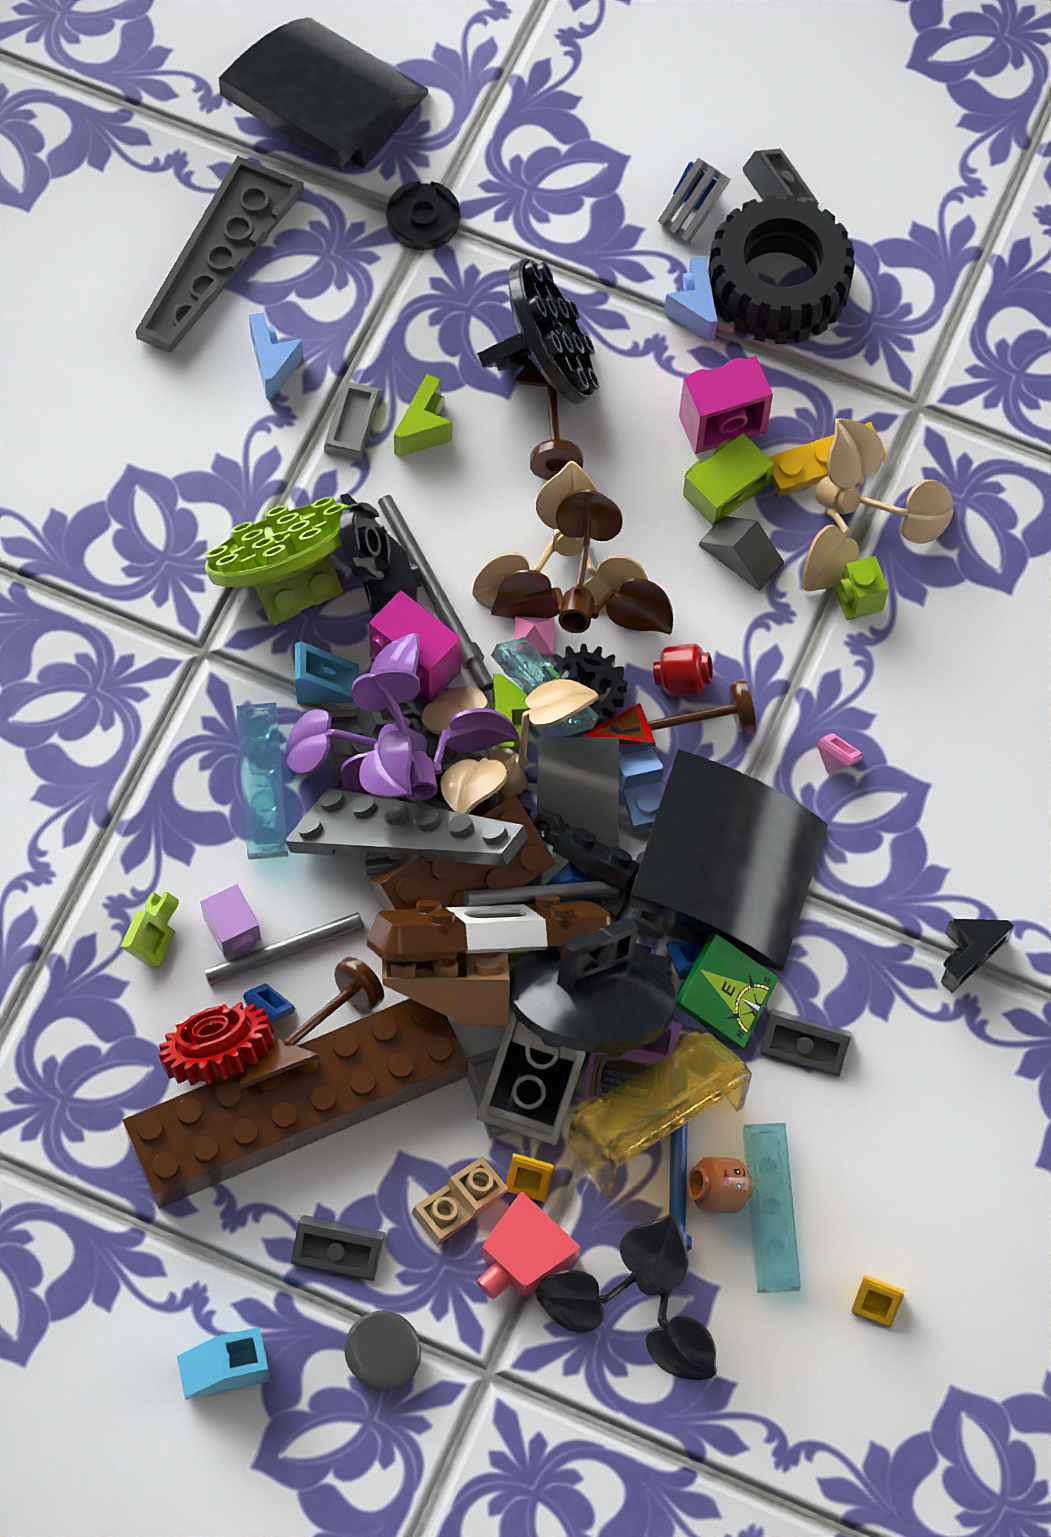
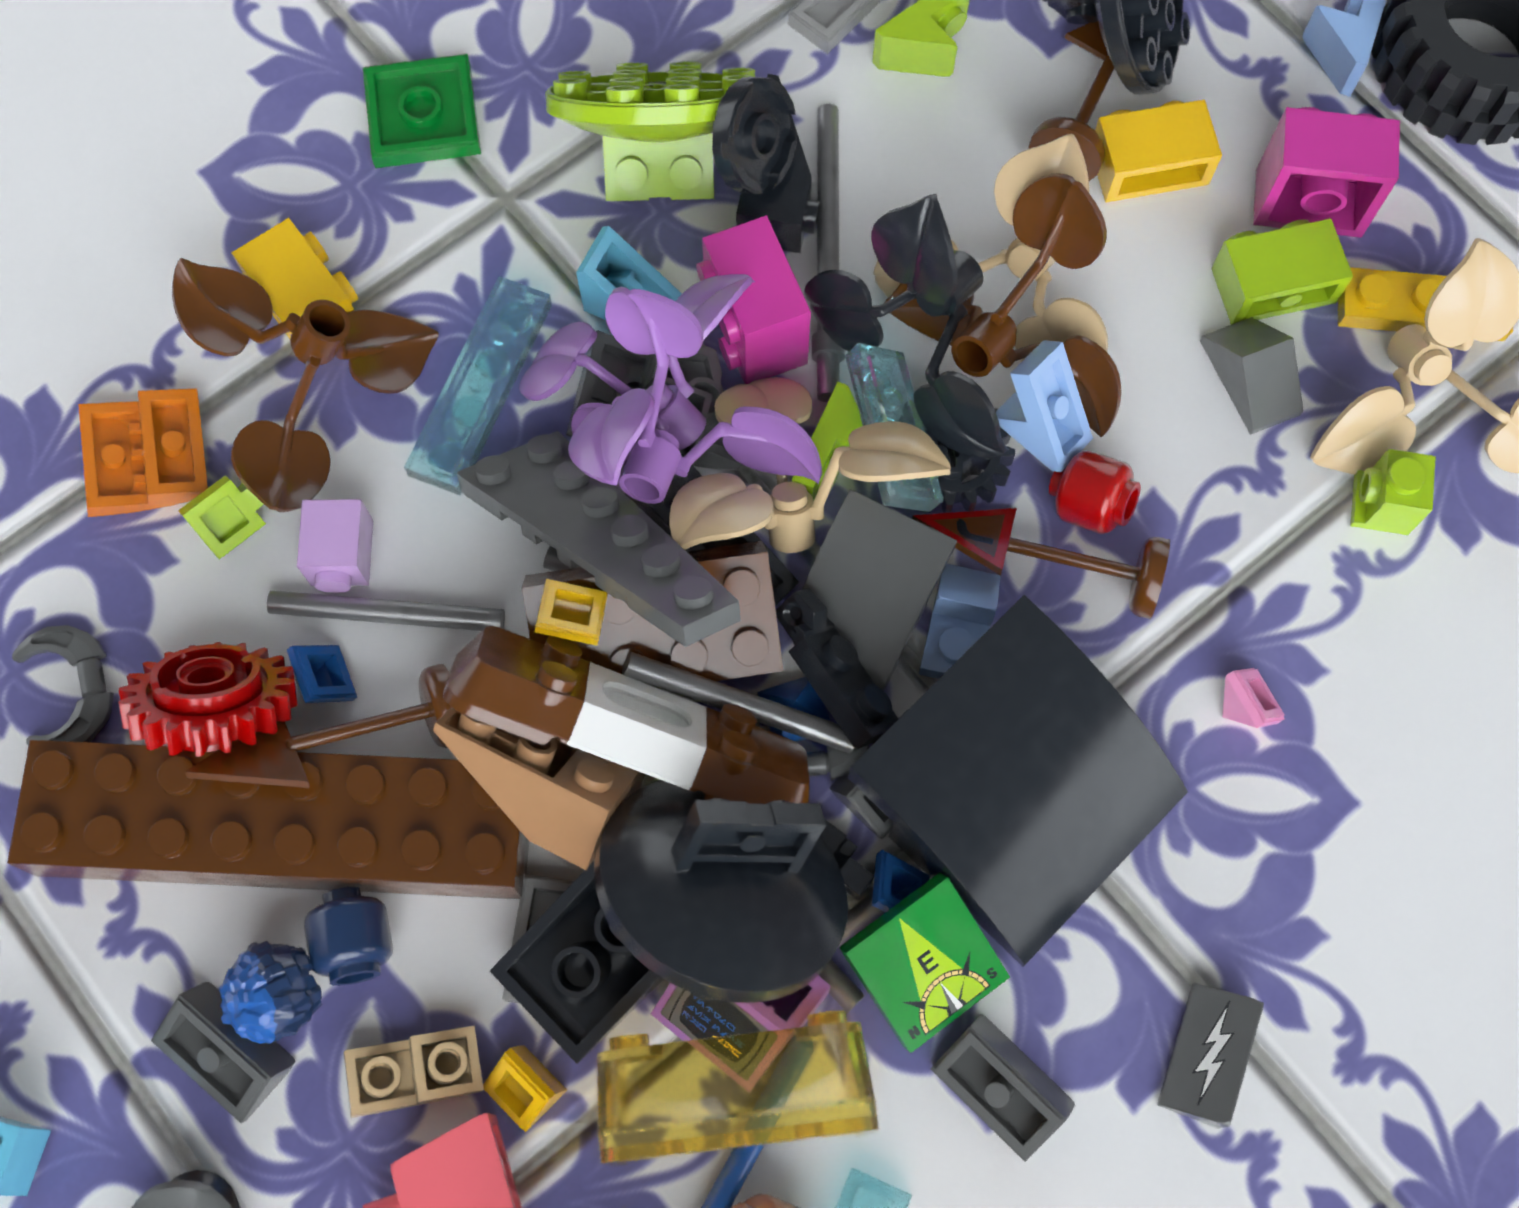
camera: 30 degrees right, 5 degrees up
(66, 924) = (142, 452): none -> orange slope
(105, 1063) = (84, 652): none -> dark grey piece
(107, 773) = (293, 271): none -> yellow piece
(113, 620) = (421, 111): none -> green tile
(175, 786) = (228, 308): none -> reddish brown plant
(354, 1192) = (269, 992): none -> piece
(380, 1141) = (348, 936): none -> dark blue head
(420, 883) = (571, 612): none -> yellow slope
(528, 578) = (917, 251): none -> black plant
(537, 632) = (918, 349): bright pink slope -> none
(612, 433) = (1157, 150): none -> yellow piece
(630, 632) = (1046, 407): none -> light blue slope
(913, 966) = (1210, 1055): none -> dark grey slope
(977, 943) = (1322, 1070): black slope -> none

